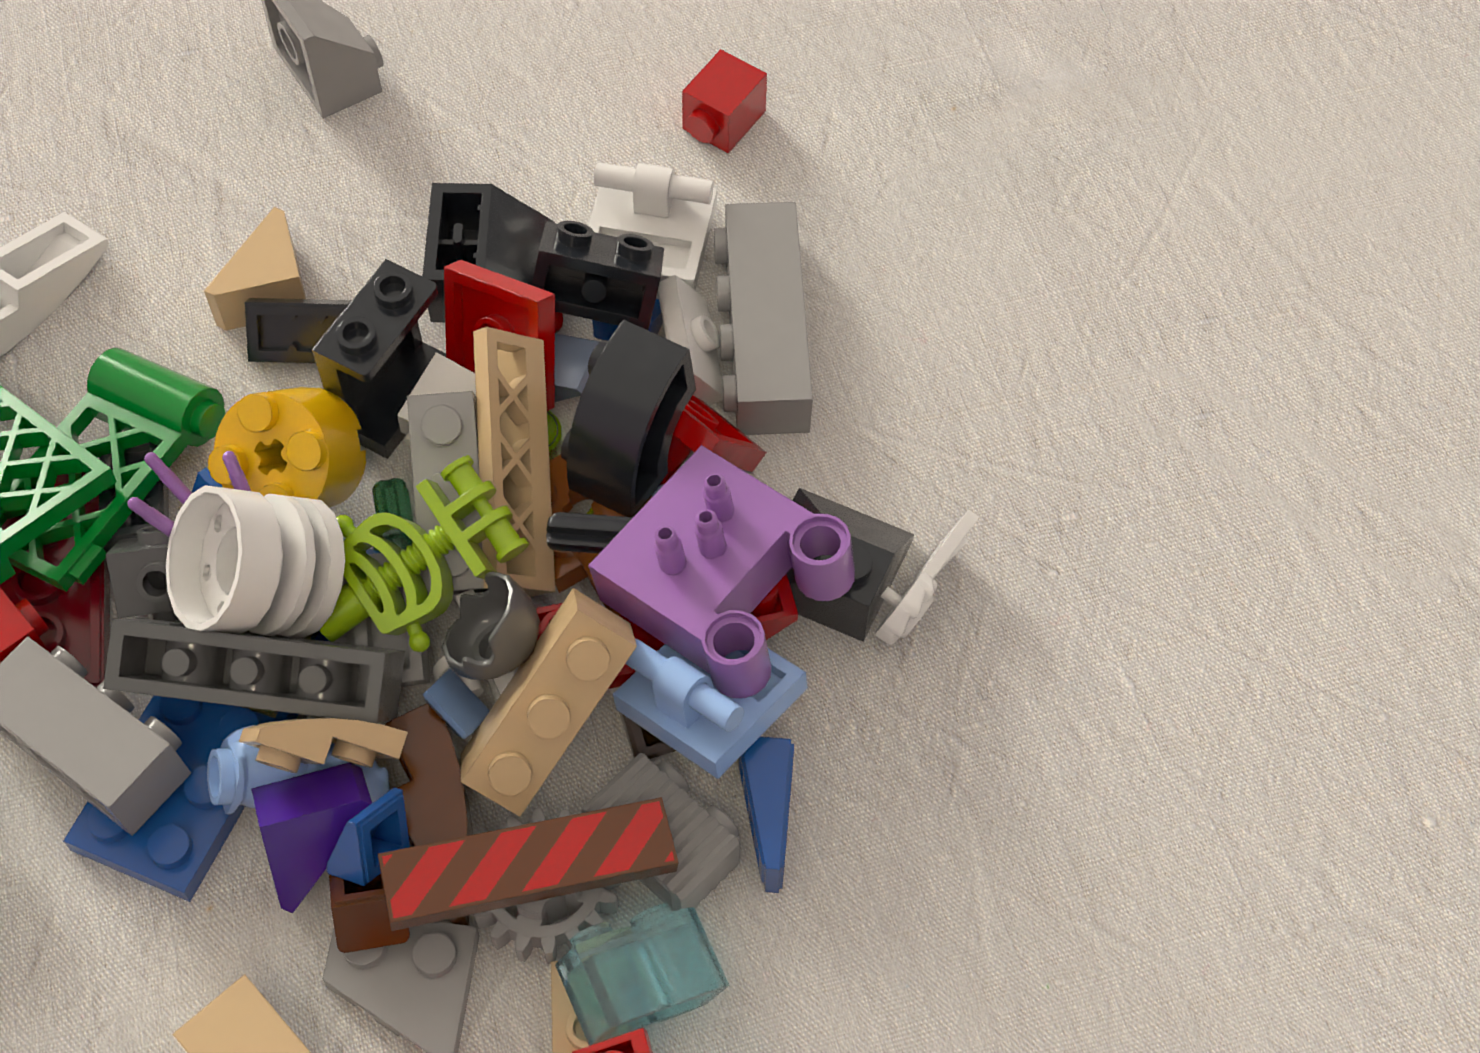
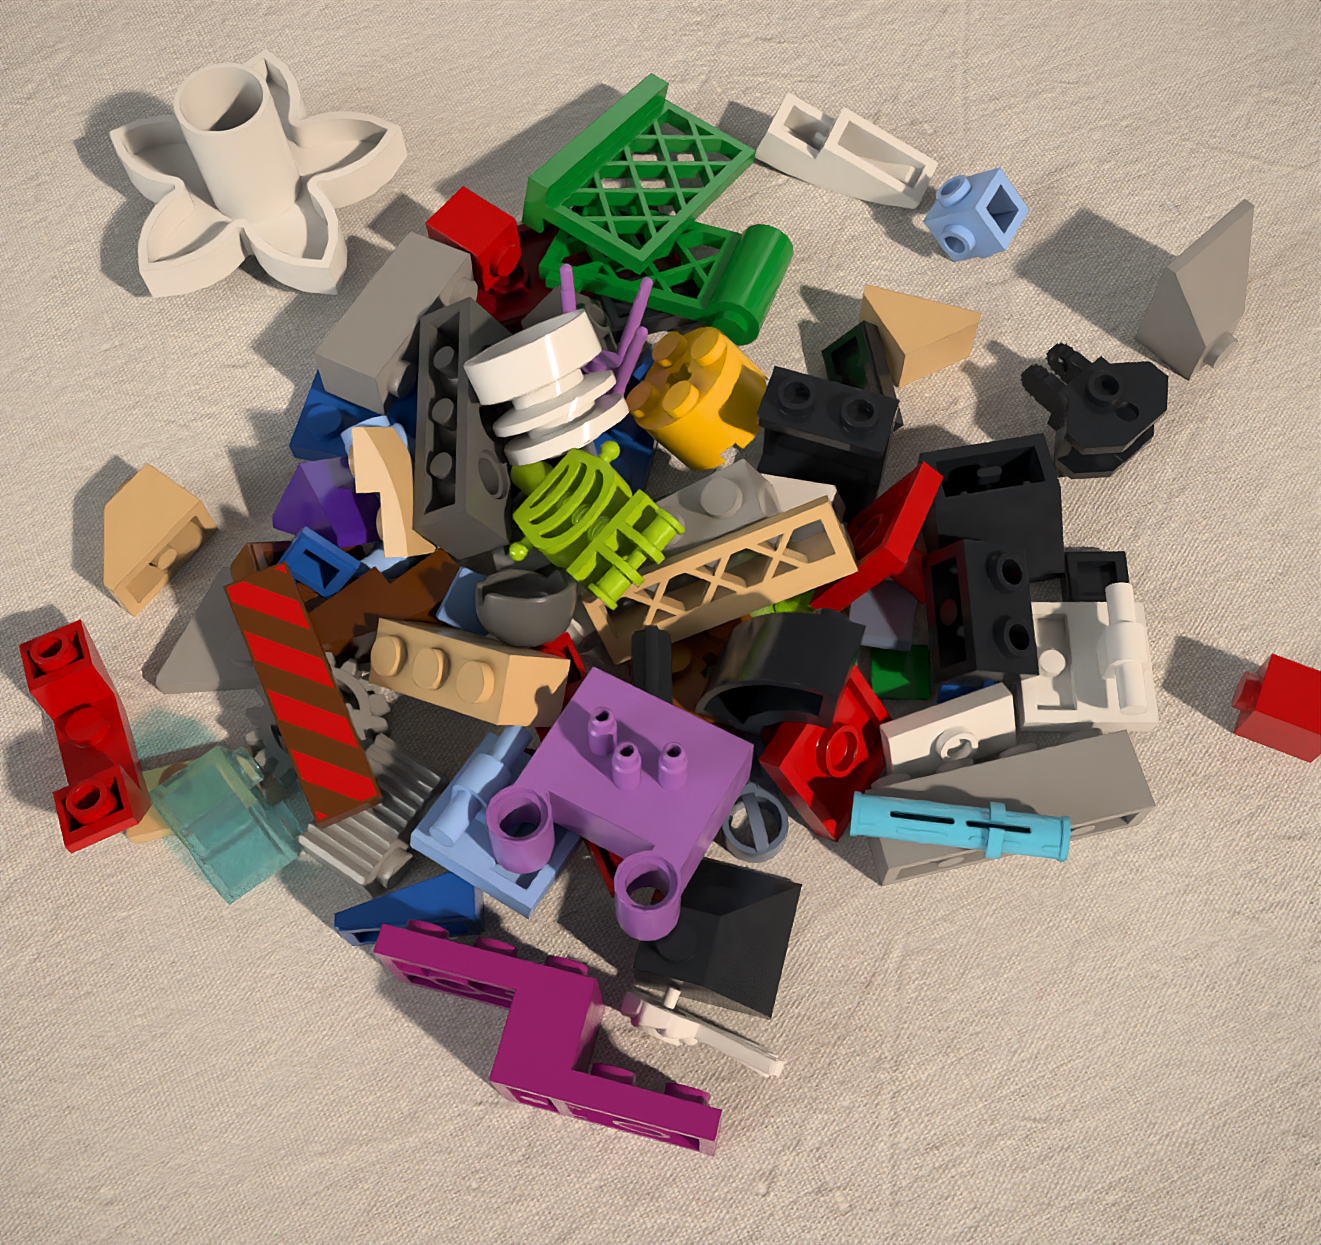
camera: 85 degrees right, 5 degrees up
(152, 190) = (976, 215): none -> light blue brick
(400, 150) = (1101, 412): none -> black hinge
(567, 199) = (1090, 573): none -> black tile
(811, 277) = (961, 826): none -> medium azure pin
(913, 690) = (548, 1035): none -> magenta bracket

